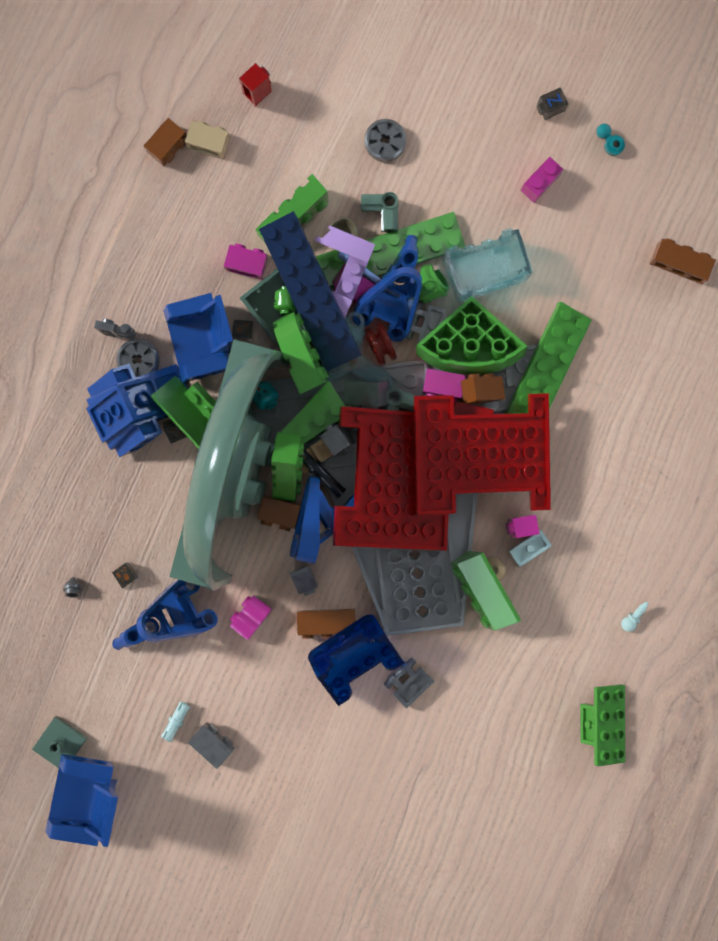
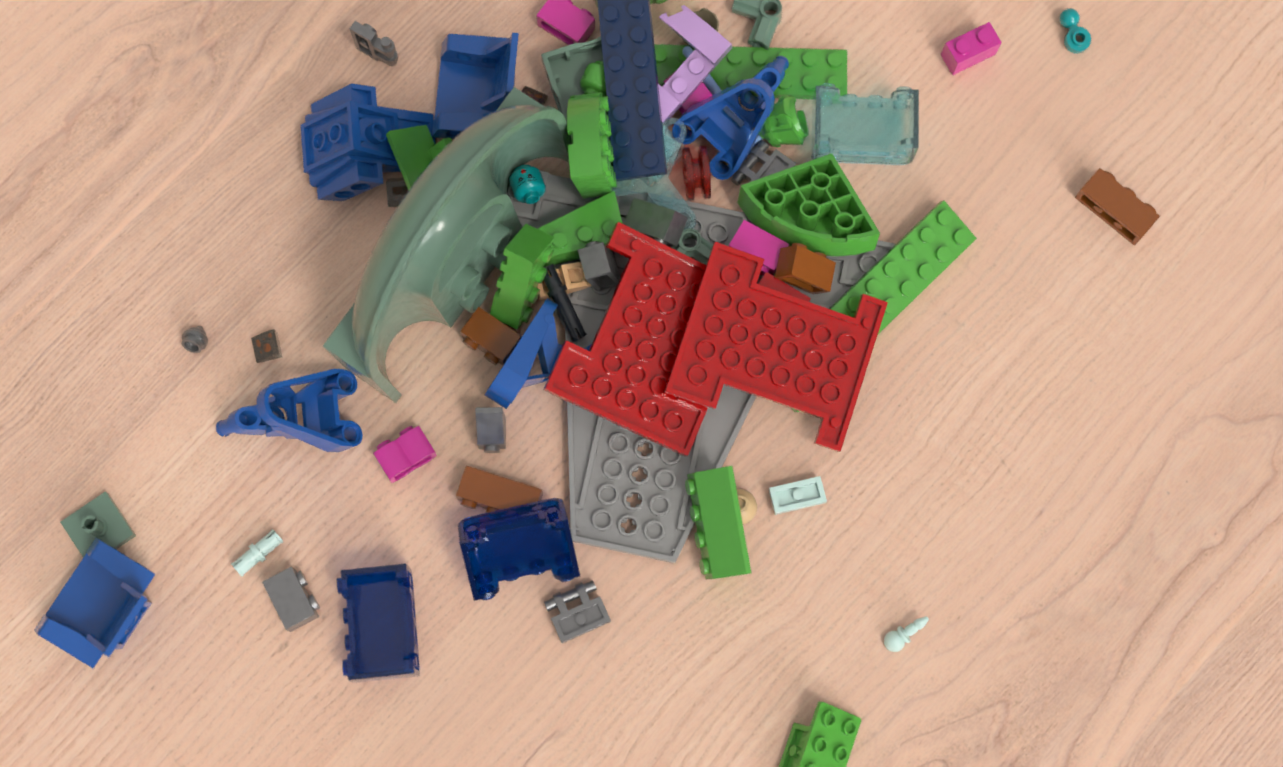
camera: 20 degrees right, 10 degrees down
(138, 348) = (394, 78): flat silver wheel -> none
(280, 743) = (379, 623): none -> clear blue windscreen
(522, 526) = (796, 460): dark pink piece -> none

